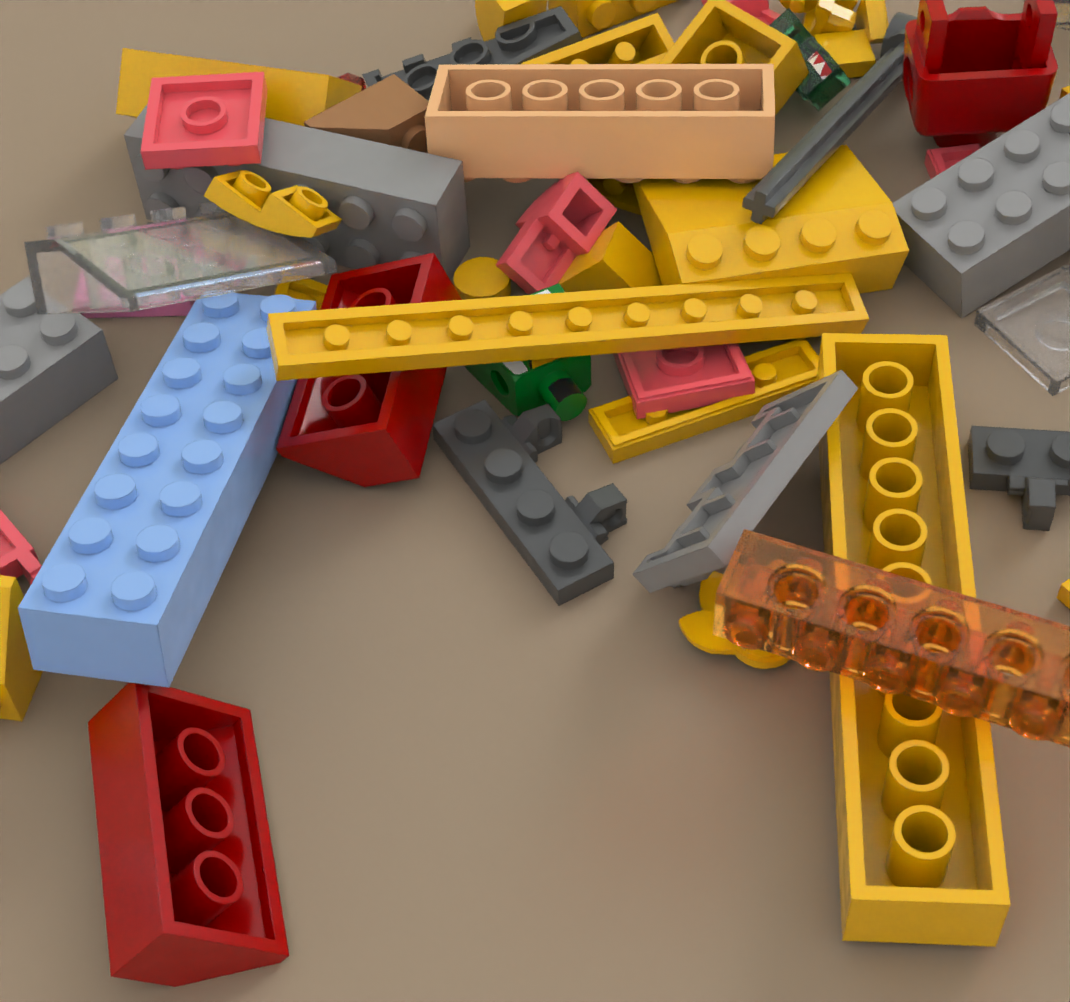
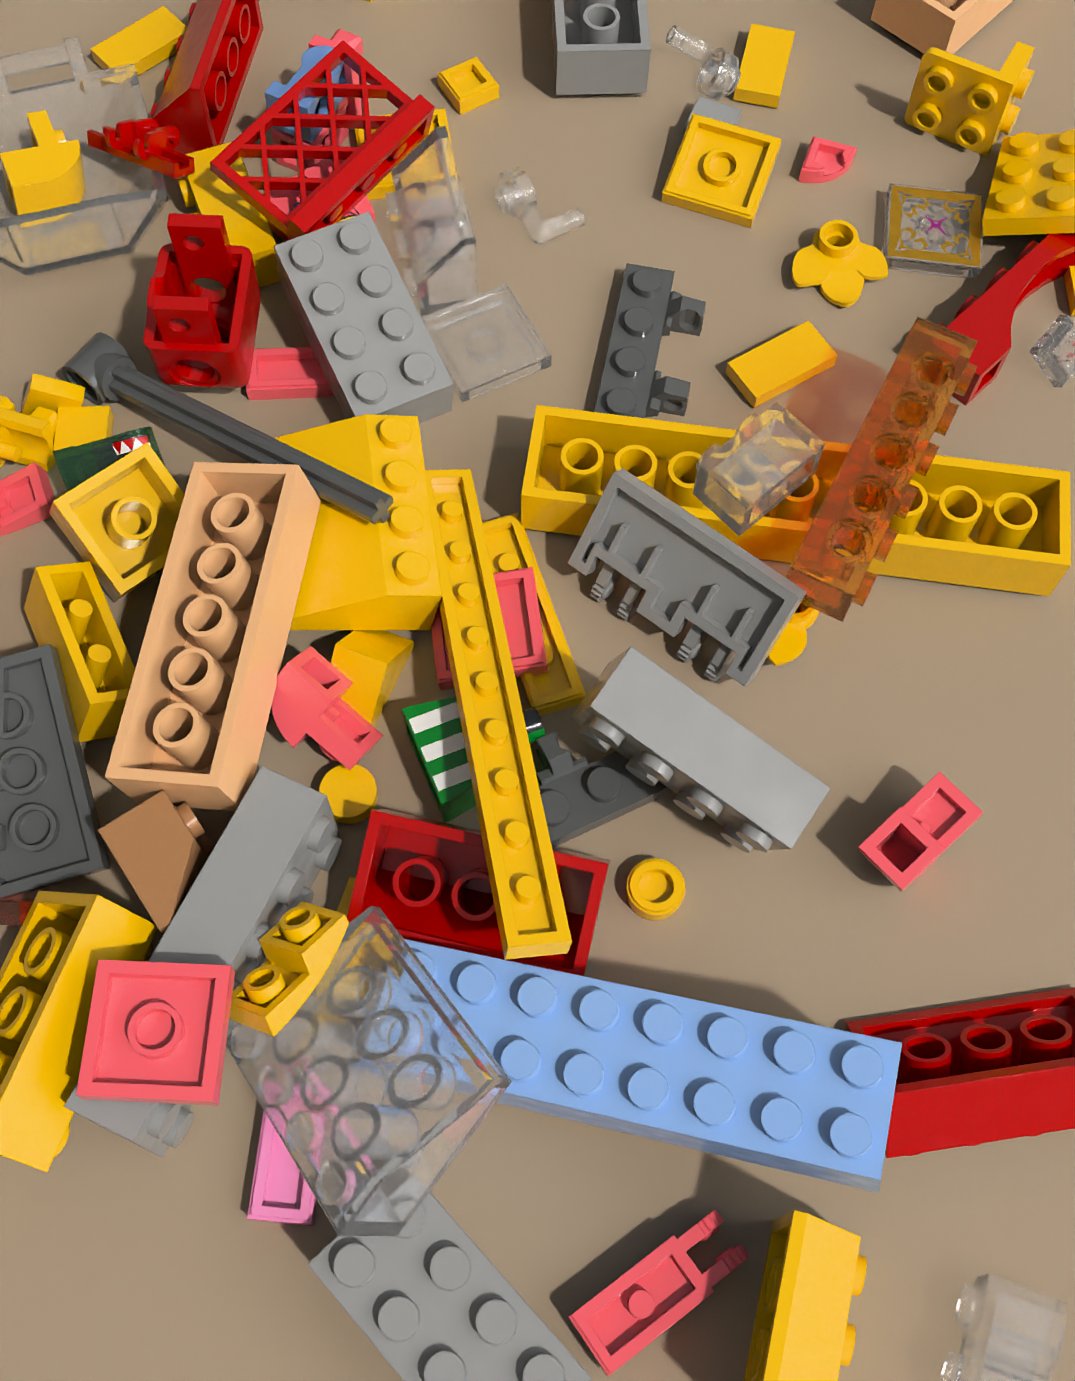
camera: 90 degrees left, 15 degrees up
(395, 530) = (655, 889): none -> yellow tile
(457, 755) = (920, 832): none -> coral brick
(516, 494) = (698, 754): none -> light grey brick
(896, 516) = (757, 467): none -> clear brick

